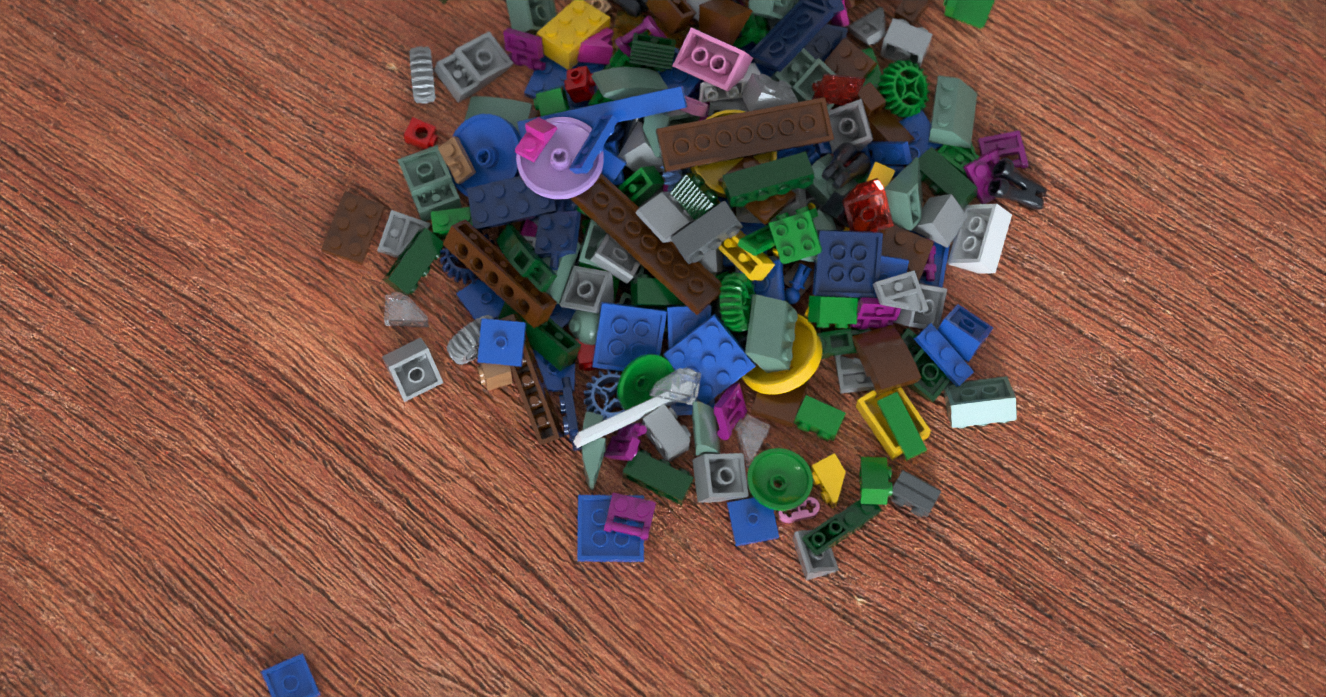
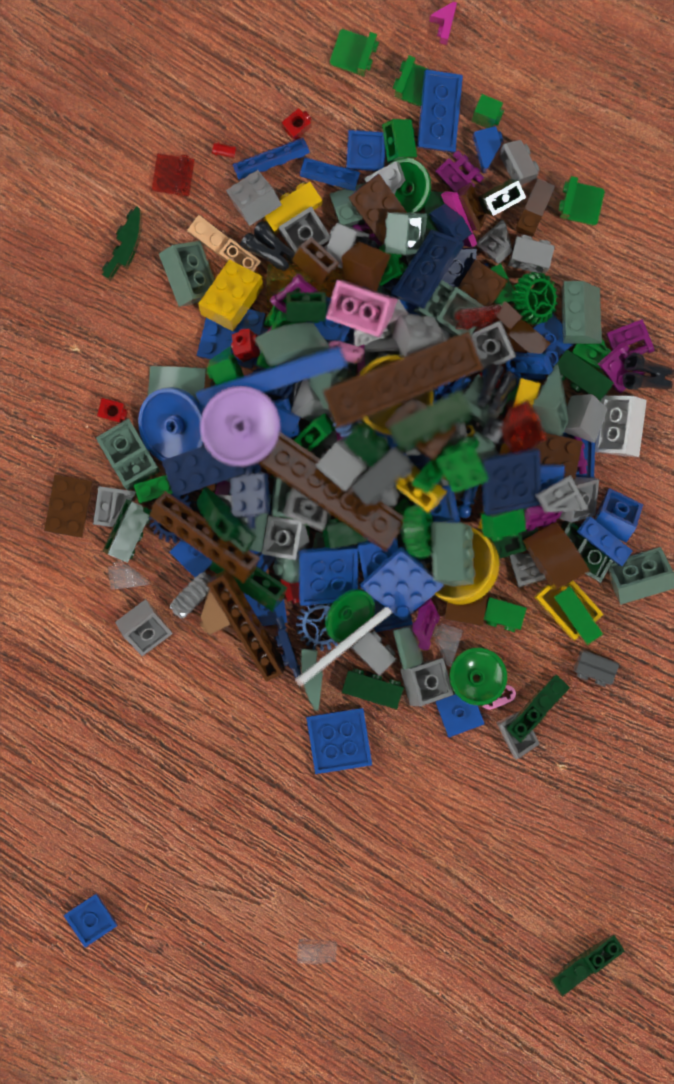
camera: 10 degrees left, 15 degrees up
(422, 75) = (103, 356): light grey gear -> none
(457, 160) = (148, 431): medium nougat plate -> none
(473, 66) = (147, 338): light grey slope -> none
(501, 342) = (217, 602): blue plate -> none
(522, 45) = (189, 317): magenta plate -> none
(536, 138) = (215, 413): dark pink slope -> none
(593, 144) = (268, 412): blue plate -> none
(597, 48) = (255, 306): dark pink slope -> none
(625, 444) = (339, 668): magenta plate -> none
(633, 510) = (354, 724): magenta plate -> none
(678, 386) = (380, 615): clear slope -> none
(829, 476) = (521, 665): yellow slope -> none
(874, 480) = (560, 664): green brick -> none

